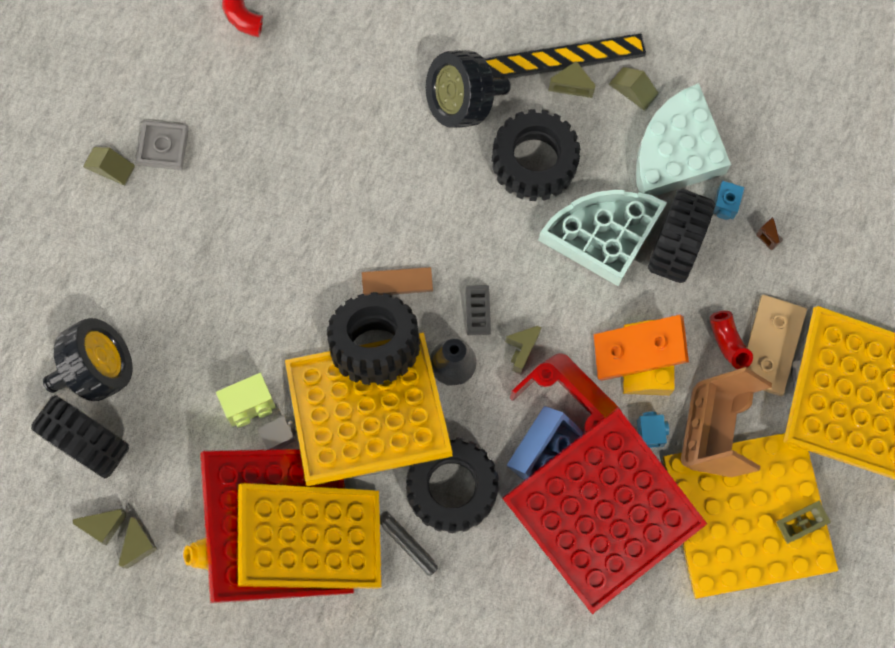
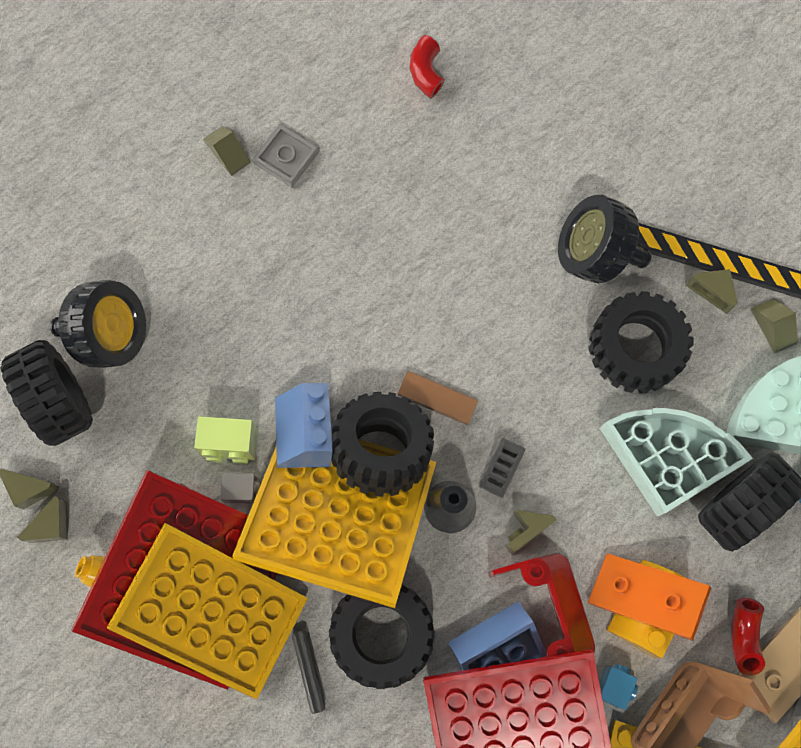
camera: 30 degrees right, 0 degrees up
(303, 358) = (303, 427): none -> medium blue slope

